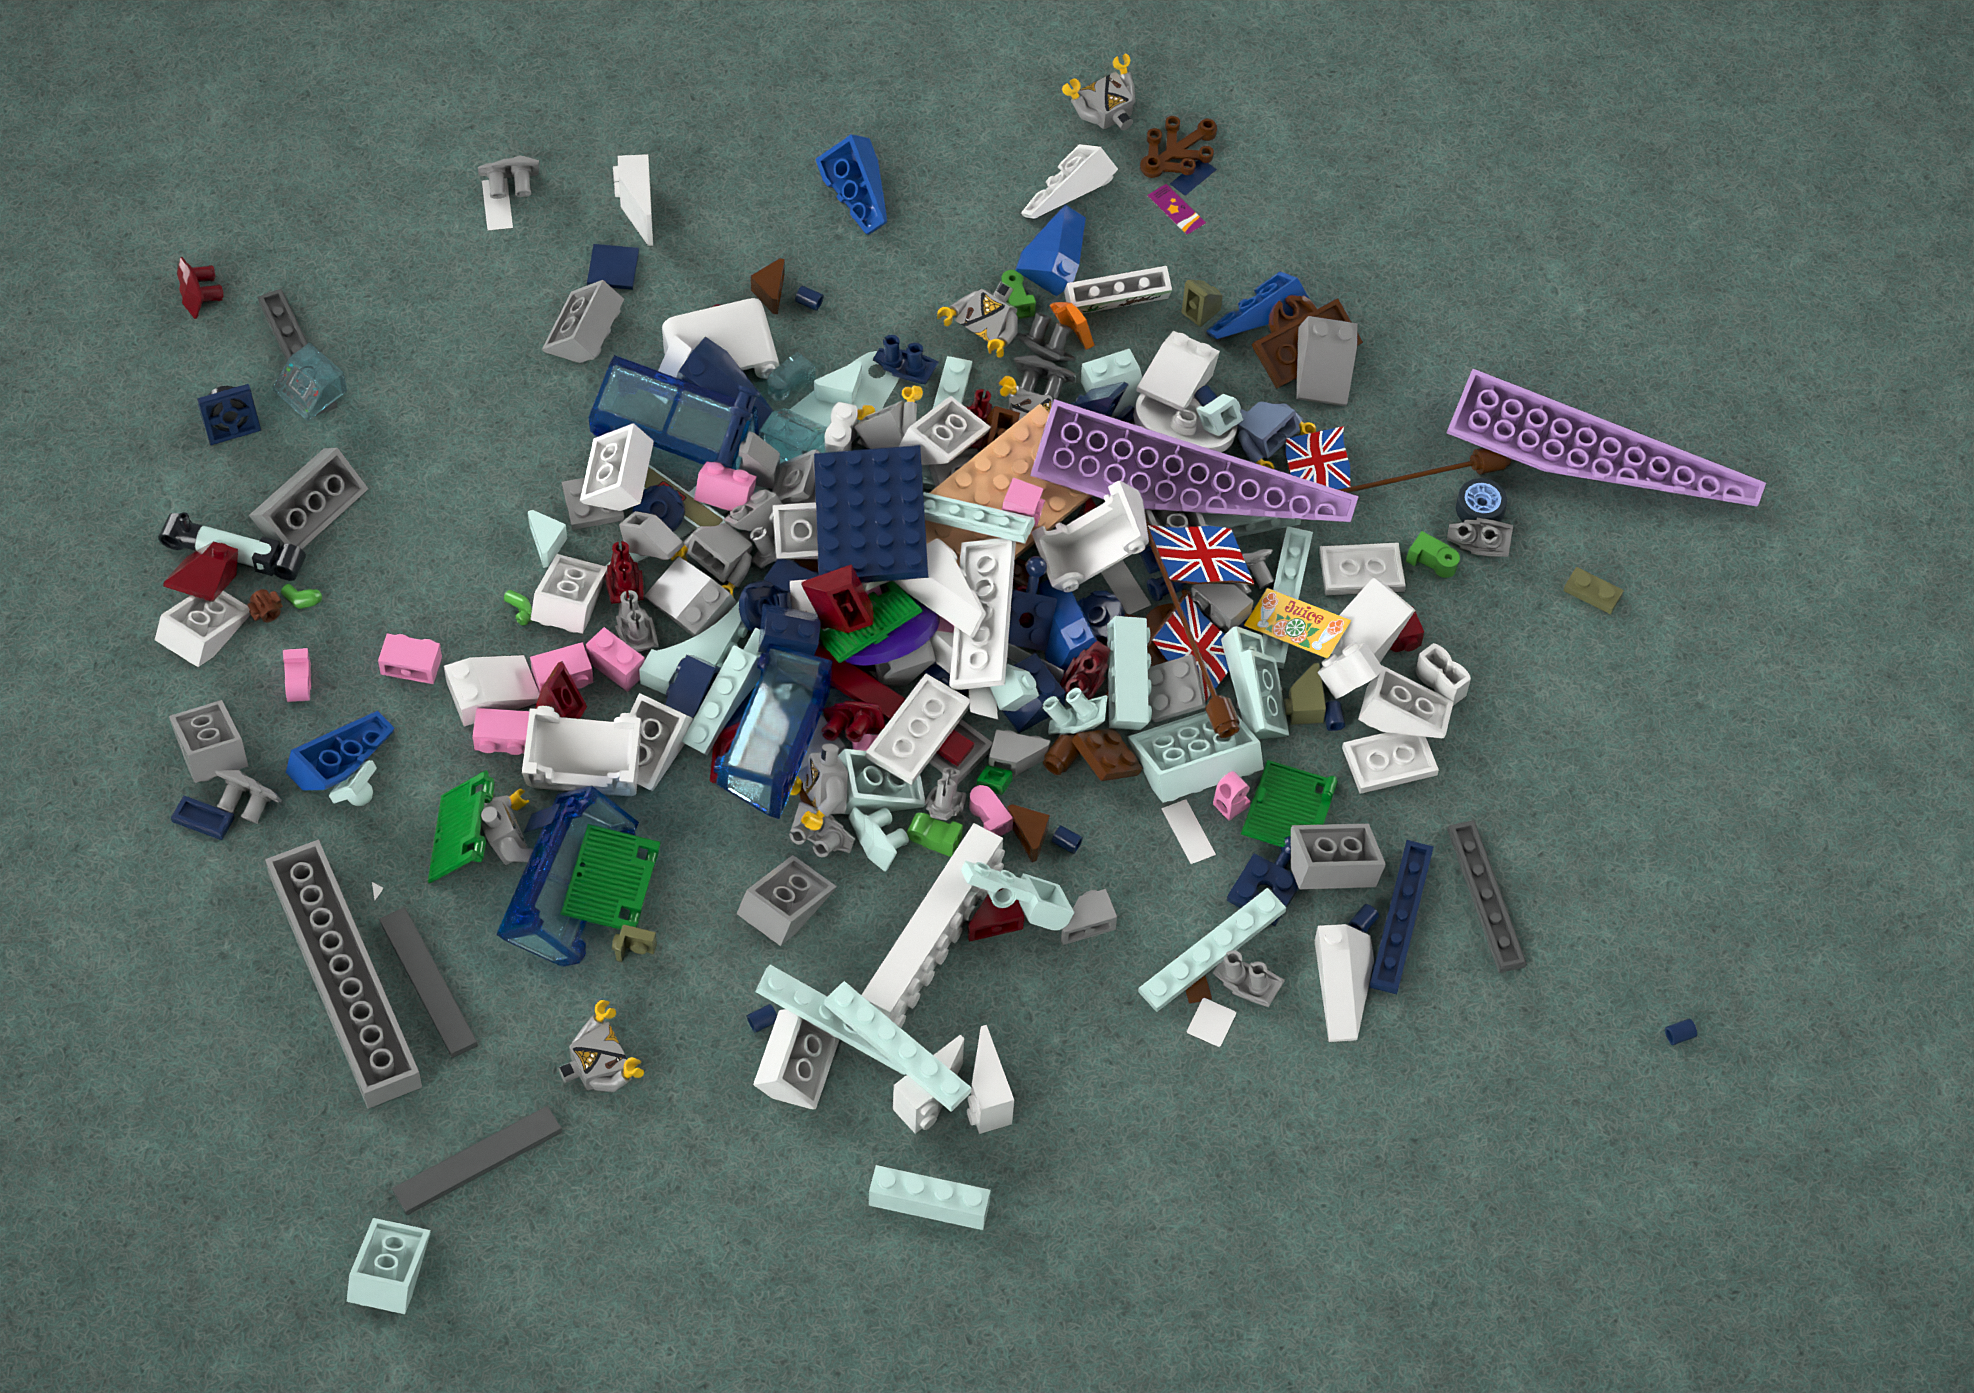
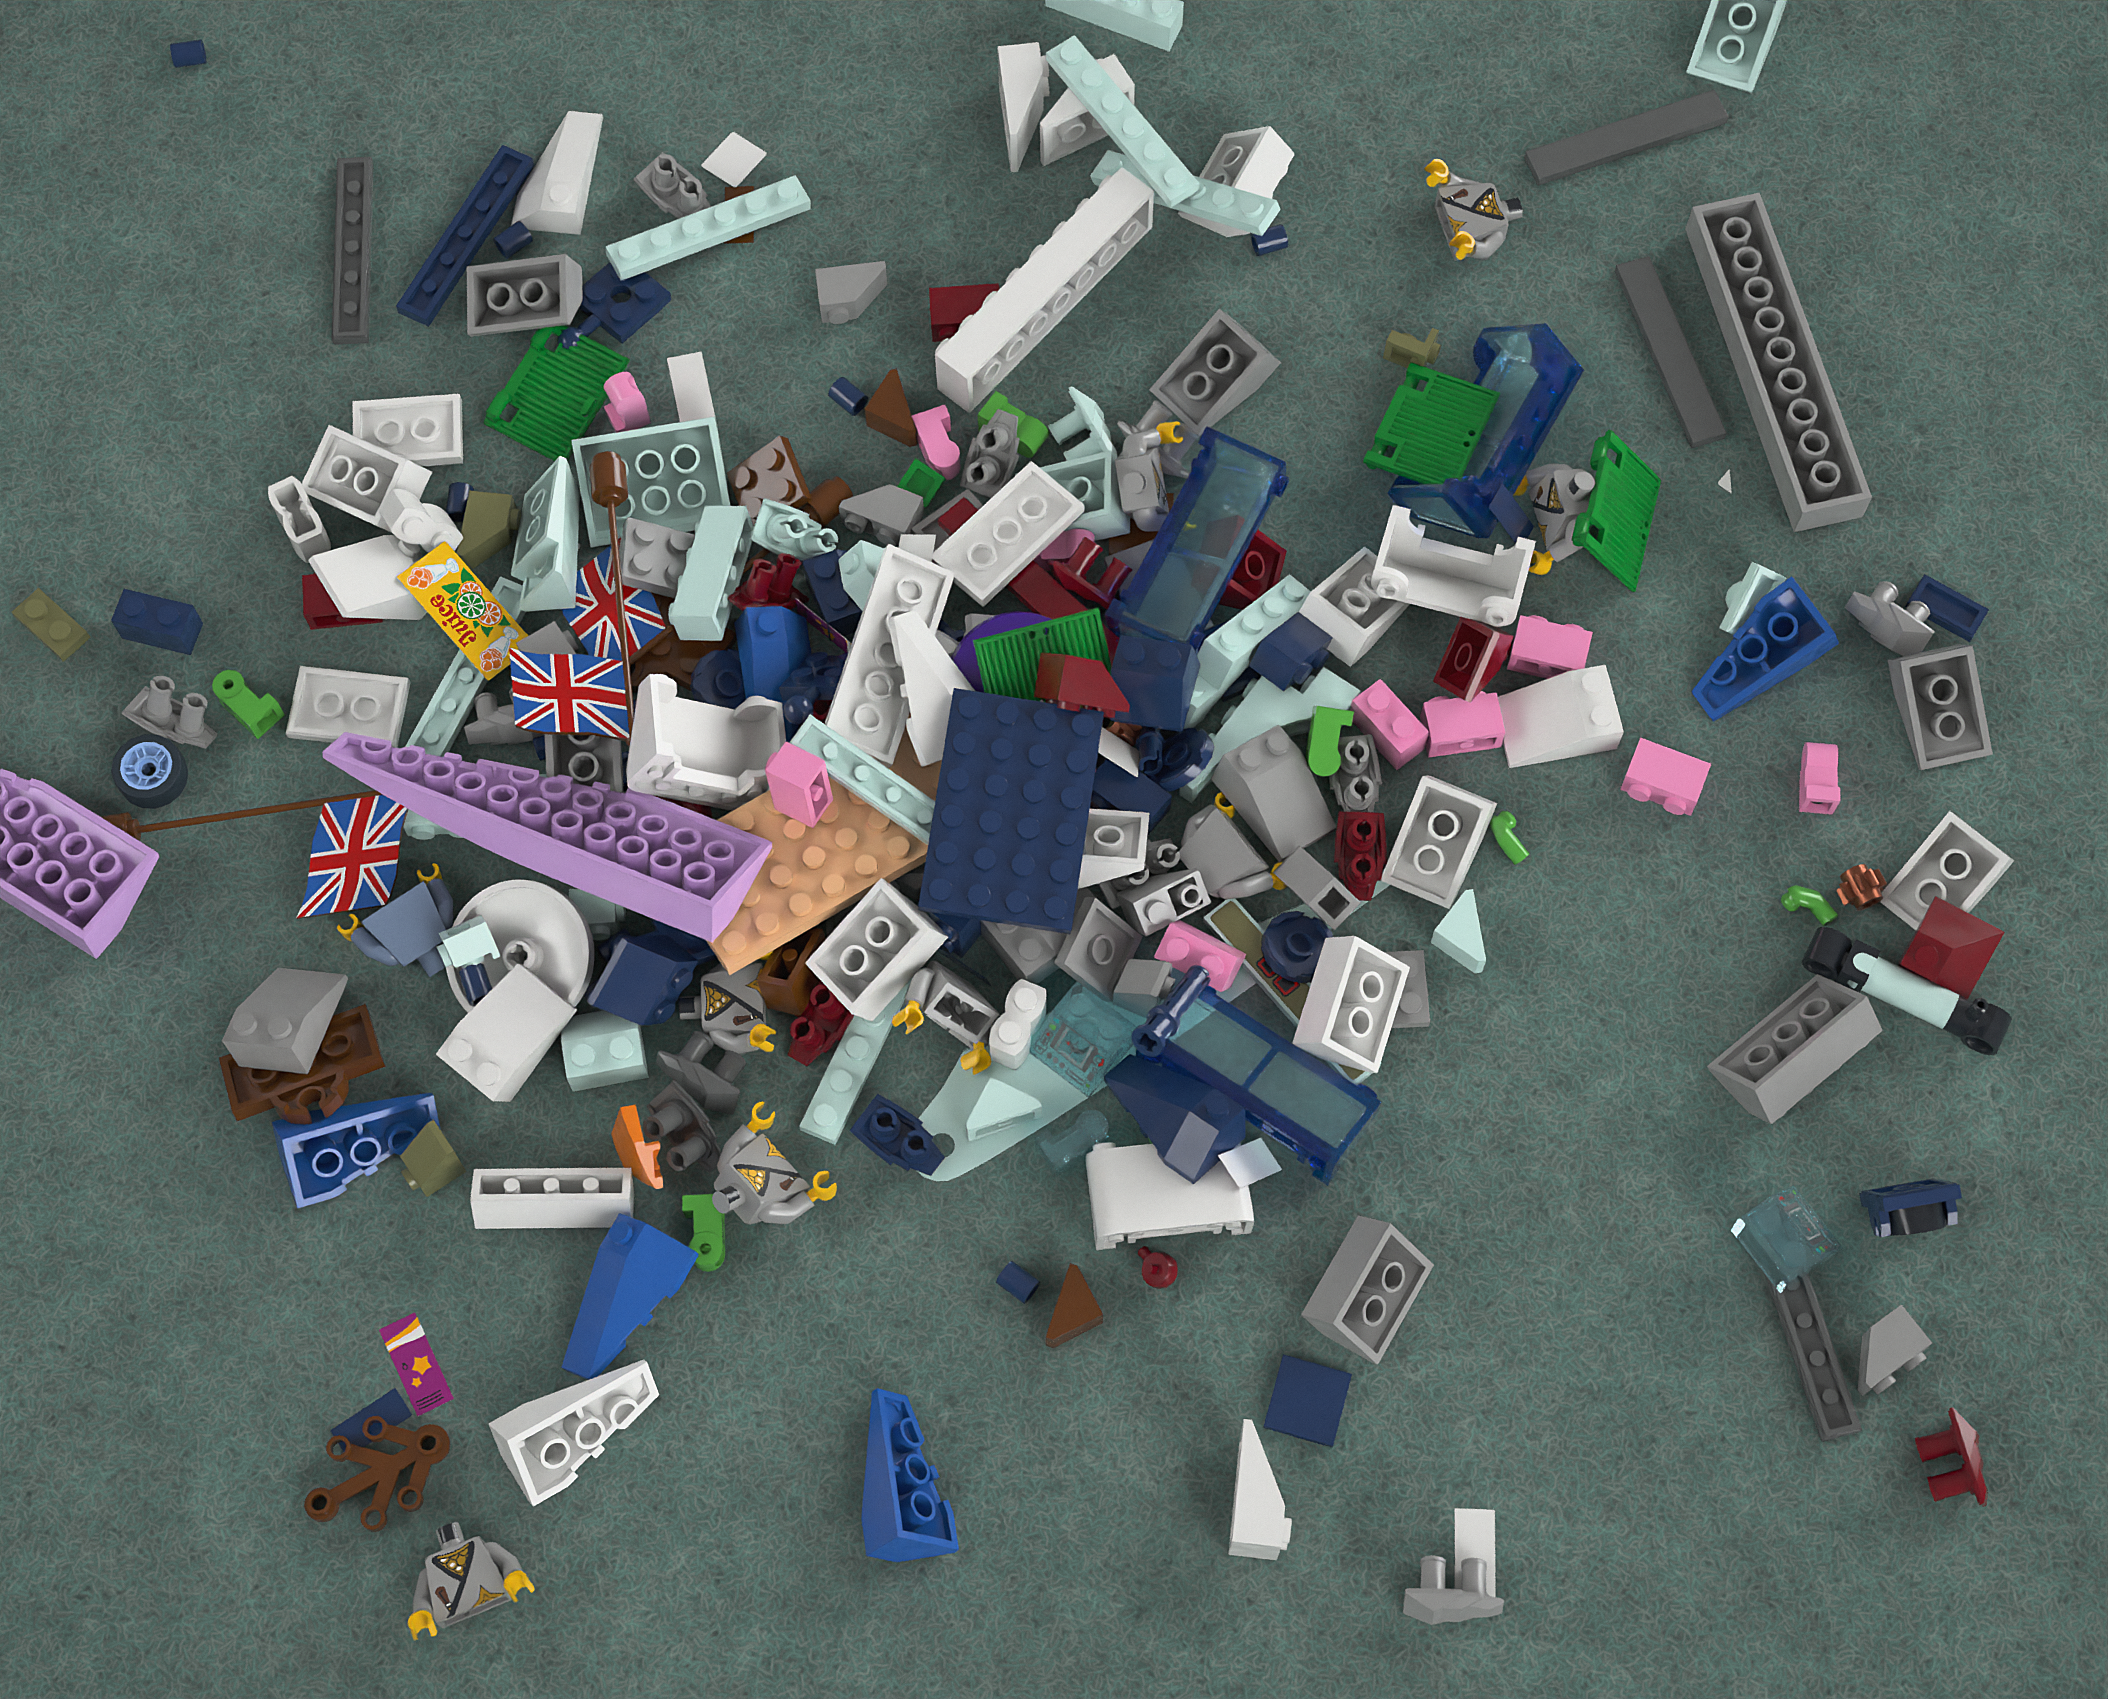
camera: 165 degrees left, 10 degrees up
(240, 338) = (1887, 1347): none -> light grey slope
(659, 633) = (1323, 739): none -> bright green leg
(1040, 899) = (906, 297): light aqua plate -> none
(1516, 594) = (157, 621): none -> dark blue brick

